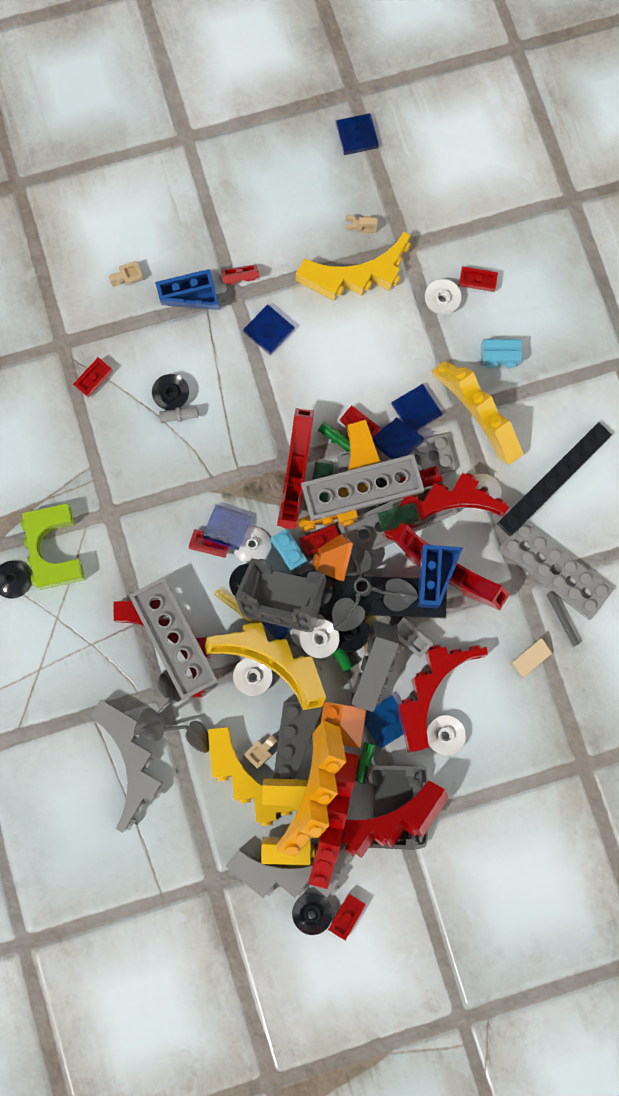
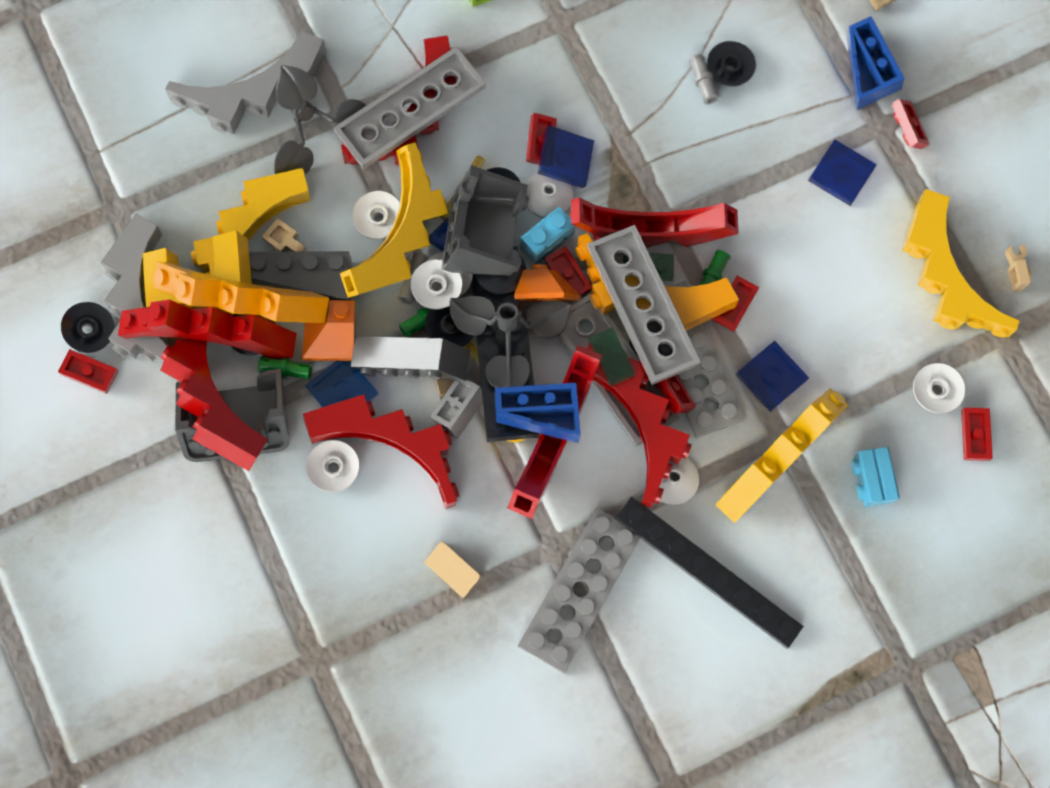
camera: 80 degrees right, 5 degrees down
(397, 439) = (722, 351): clear blue tile -> none
(563, 619) = (513, 608): dark grey bar -> none

